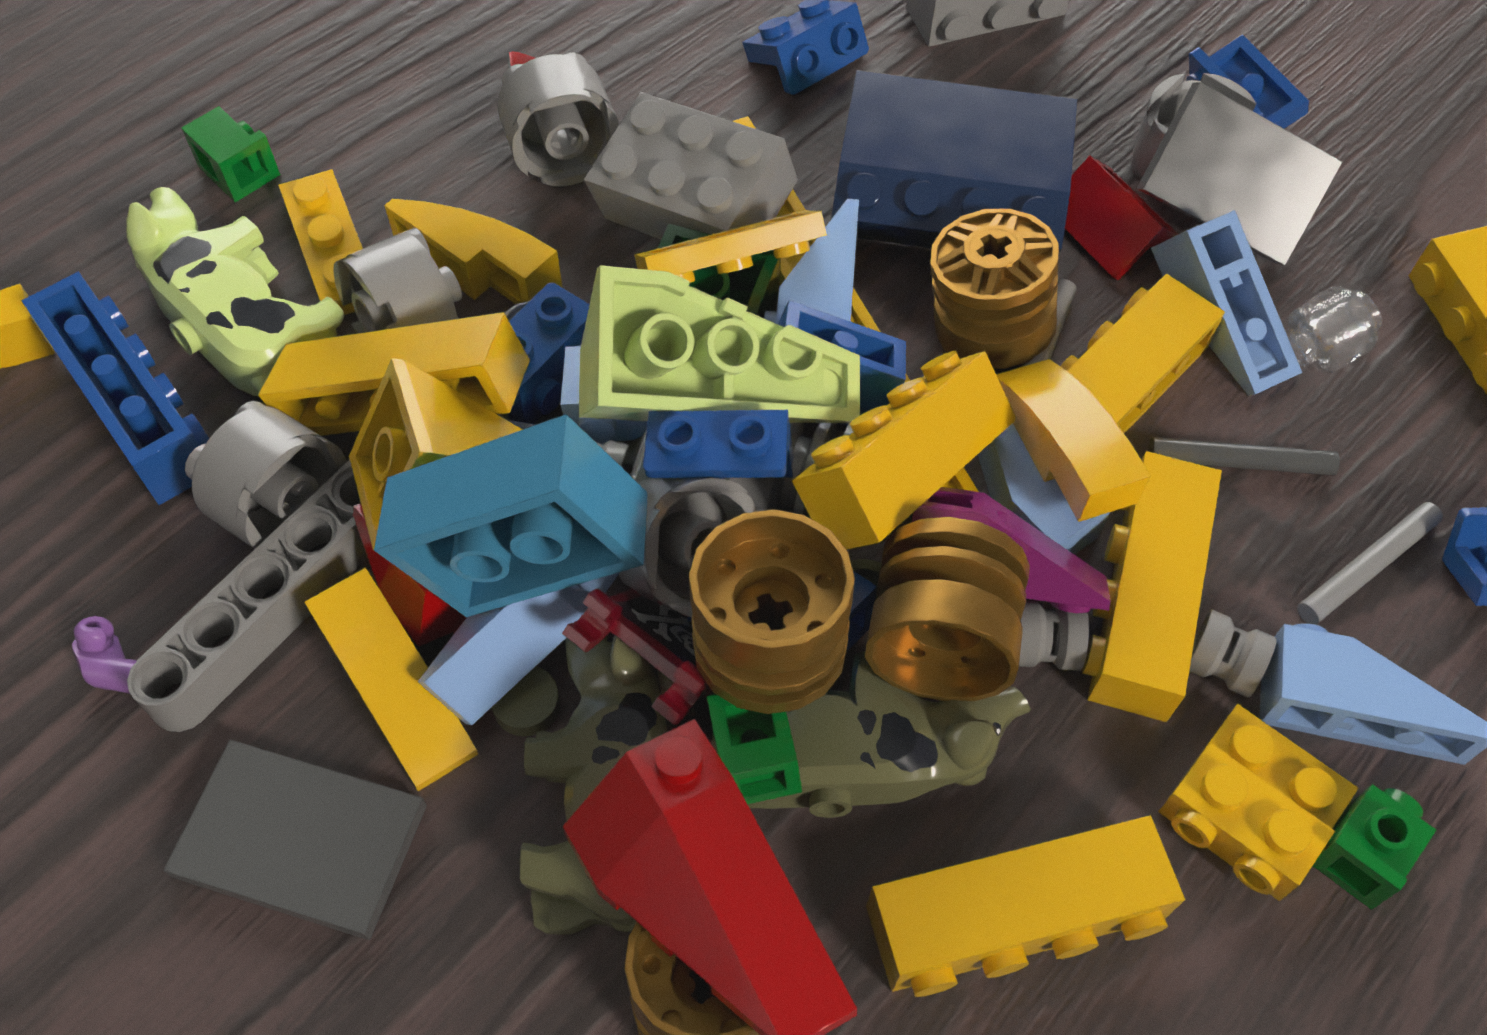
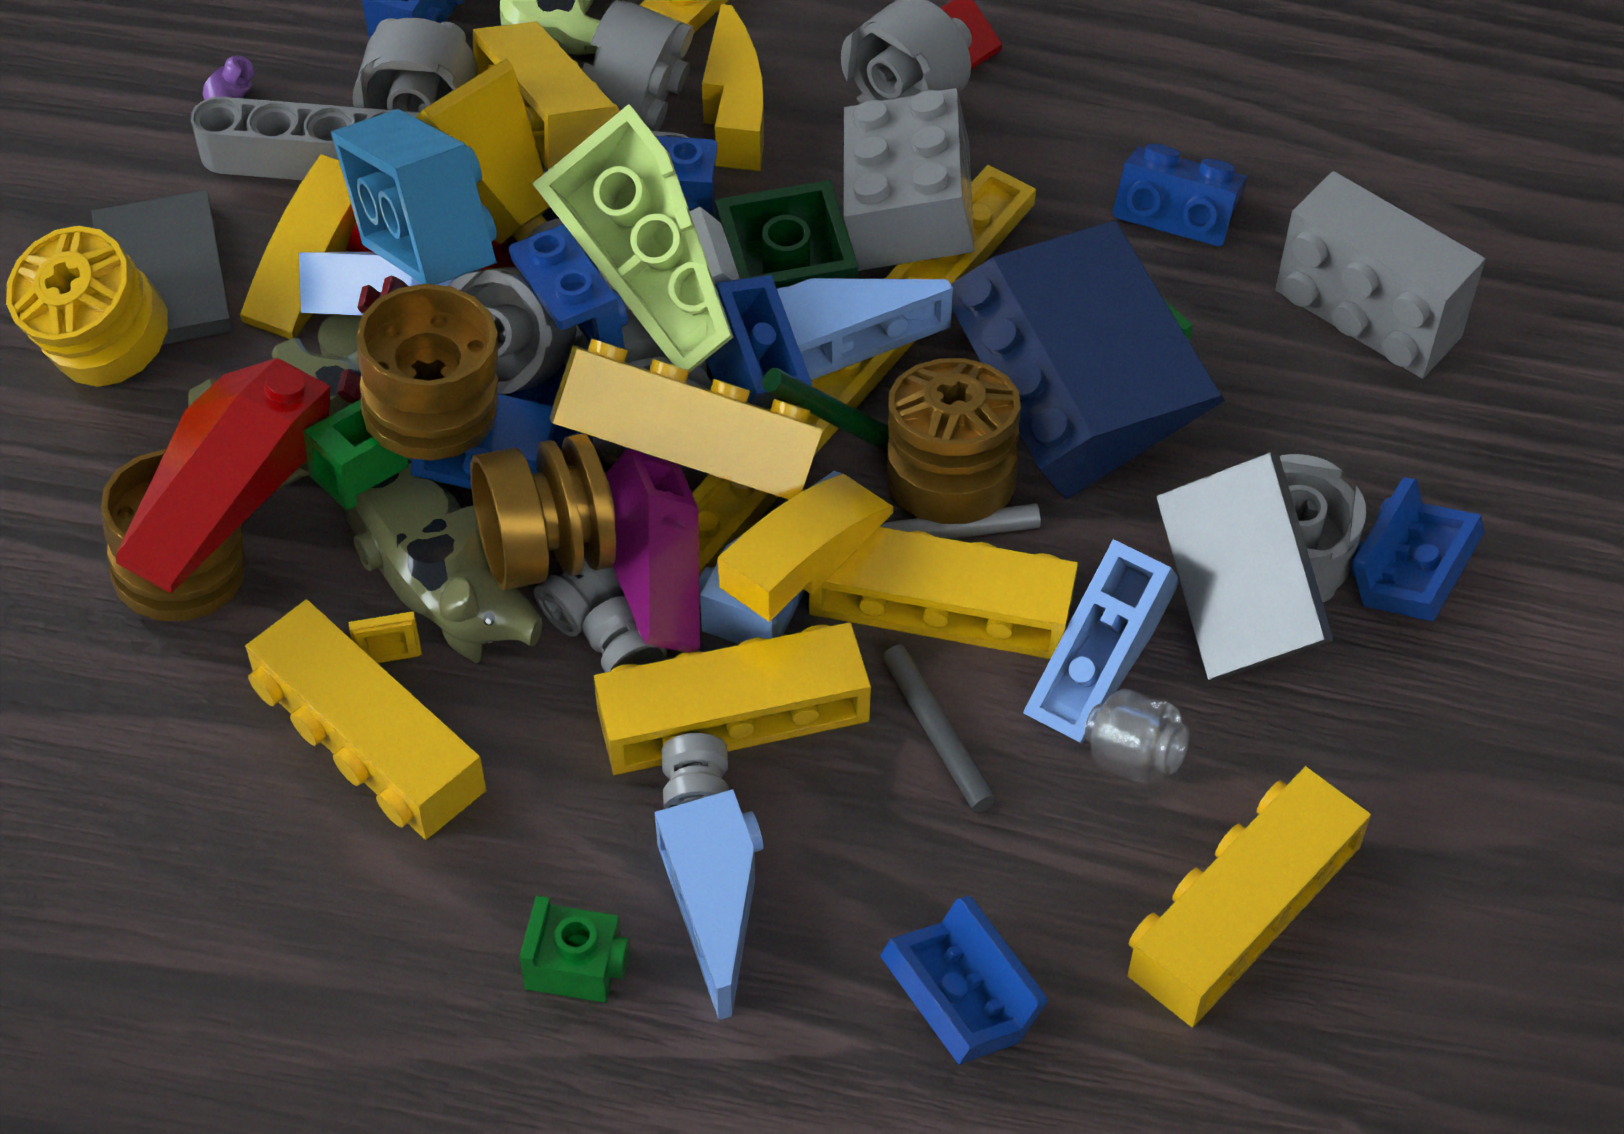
camera: 60 degrees right, 5 degrees down
(370, 906) = (87, 306): none -> yellow wheel
(733, 248) = (815, 222): yellow plate -> none
(921, 349) = (826, 408): none -> dark green bar
(923, 843) = (387, 637): none -> yellow slope
(1112, 218) = (1133, 509): red panel -> none
(1258, 804) = (565, 849): yellow plate -> none
(1369, 563) = (882, 867): light grey bar -> none

